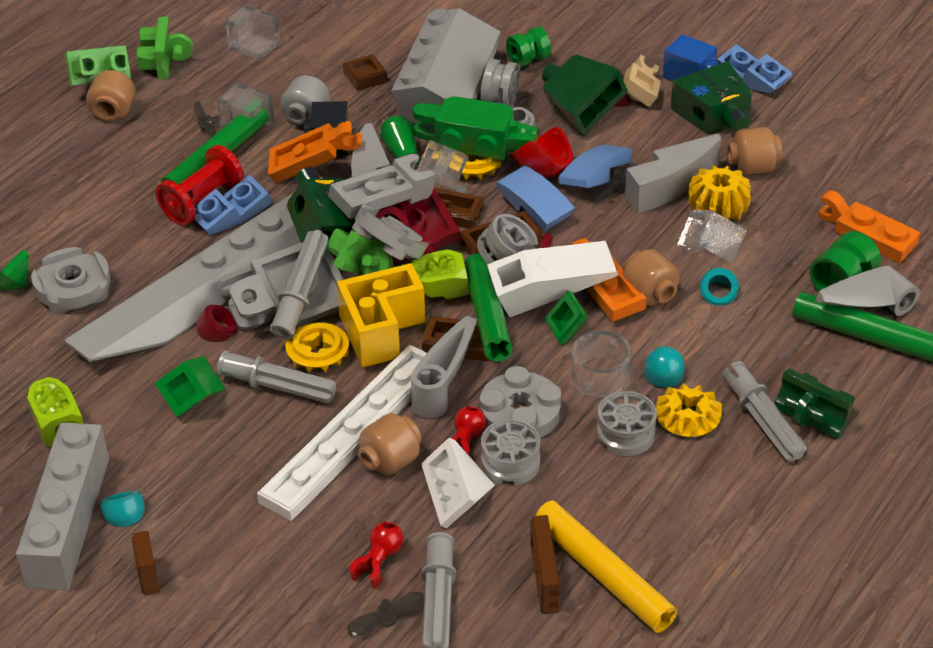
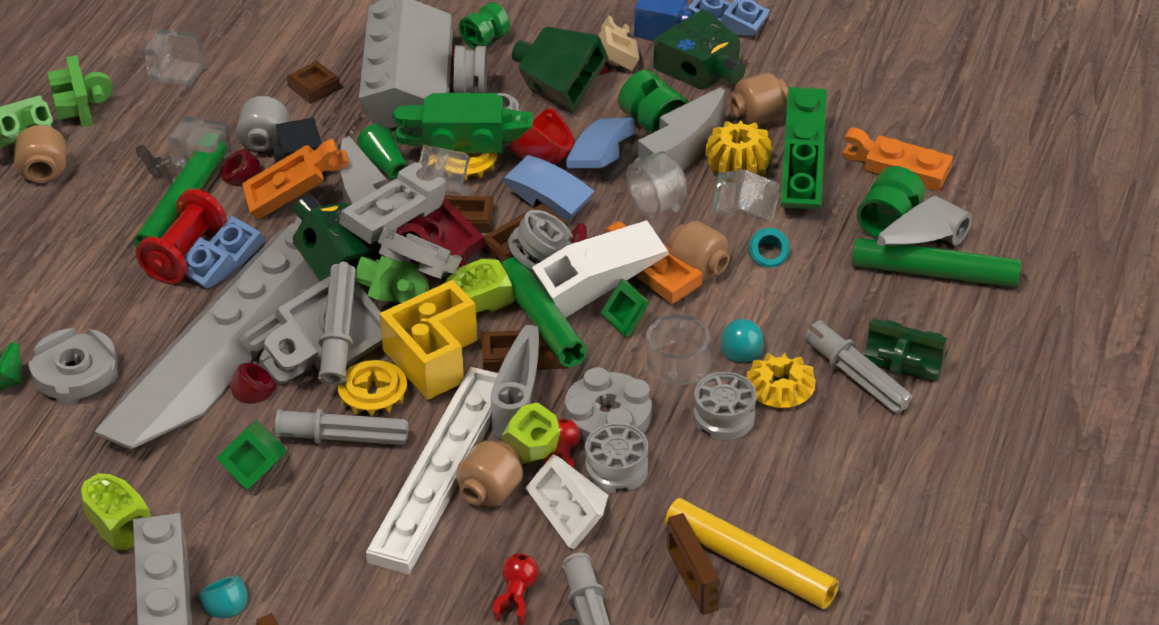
camera: 15 degrees left, 0 degrees up
(275, 134) = (247, 166): none -> dark red piece
(435, 414) = (532, 432): none -> lime rock
(631, 211) = (657, 184): none -> clear piece
(649, 131) = (647, 99): none -> green wheel
(779, 202) = (804, 148): none -> green slope

